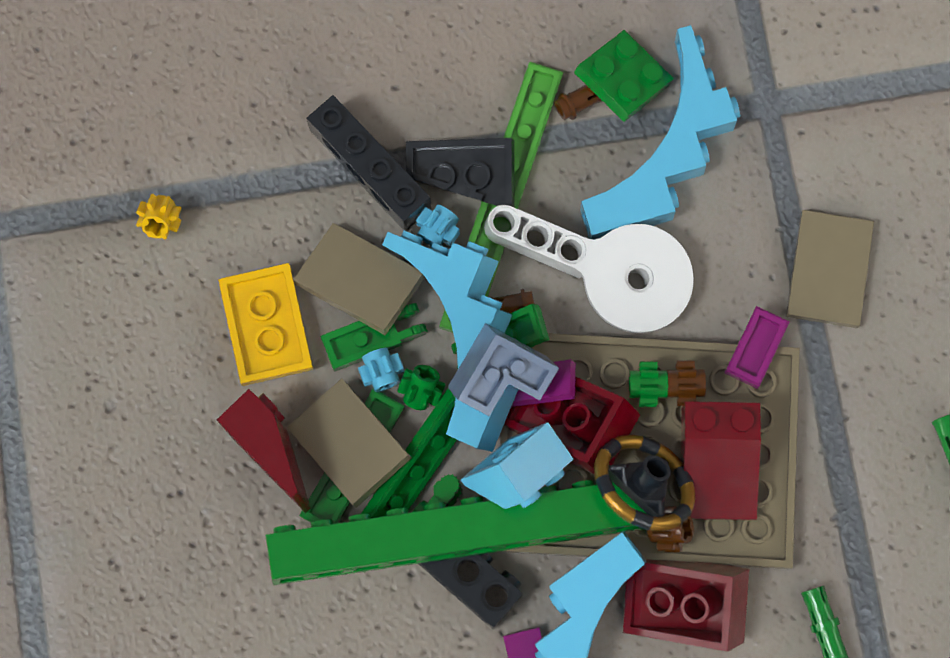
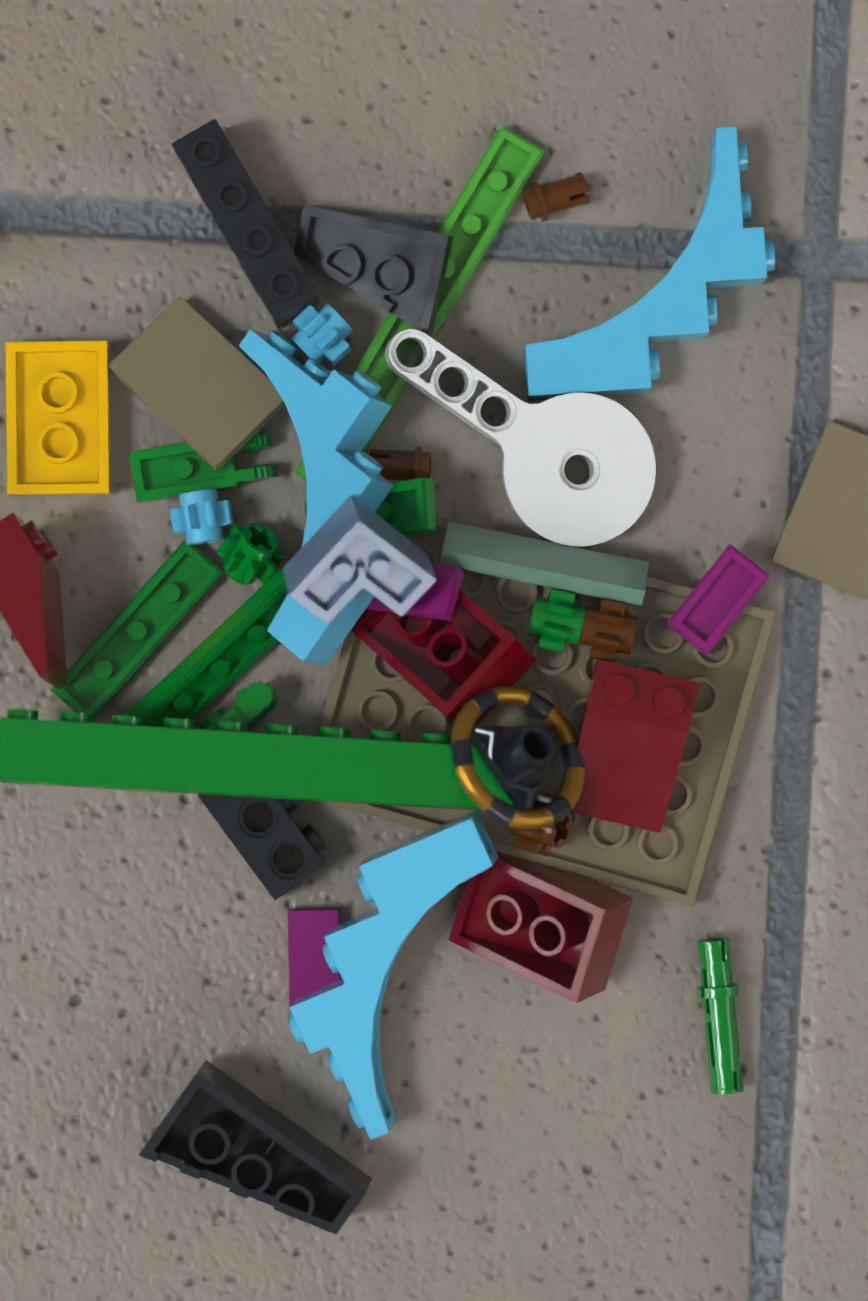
camera: 10 degrees right, 10 degrees up
(349, 443) = (136, 608): dark tan tile -> none
(520, 468) = (354, 700): medium azure slope -> none
(623, 75) = (627, 175): green plate -> none
(631, 347) = (545, 563): none -> sand green tile

